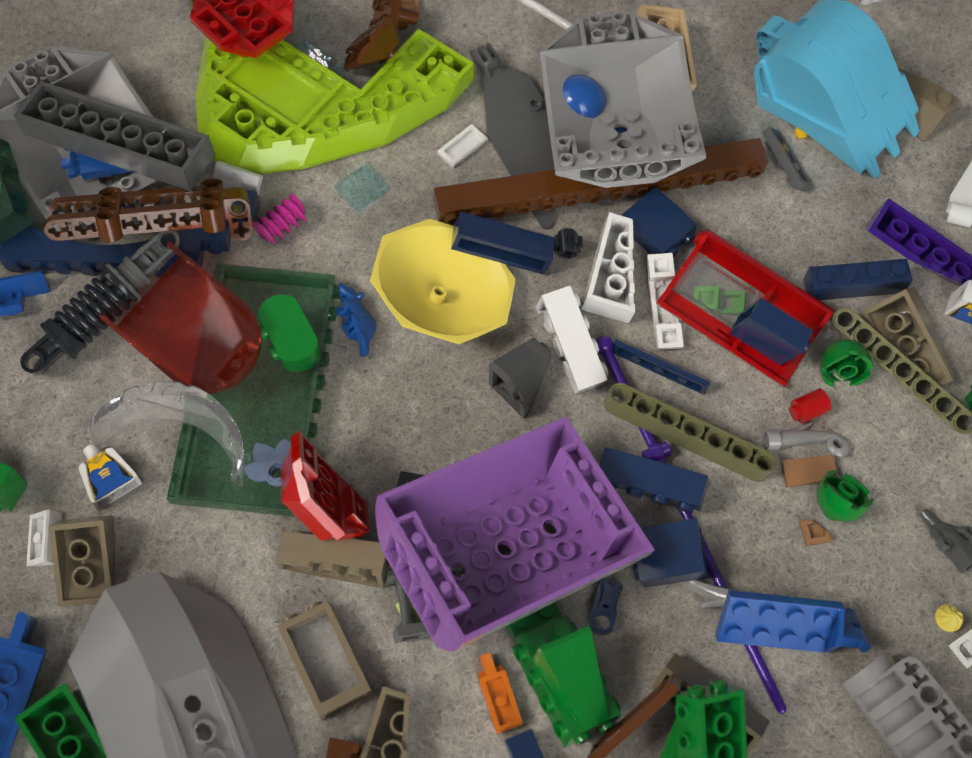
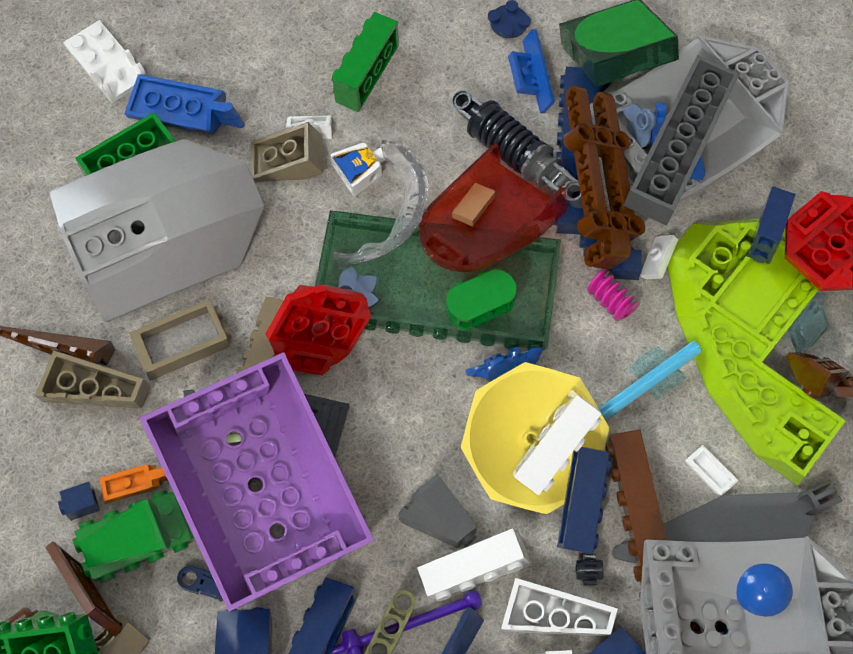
camera: 95 degrees right, 0 degrees up
(84, 185) = (641, 123): none -> sand blue plate
(170, 345) = (473, 204): none -> medium nougat tile
(221, 64) = (771, 225): none -> dark blue brick
(371, 185) = (650, 380): none -> medium azure axle
(452, 253) = (557, 443): none -> white wedge

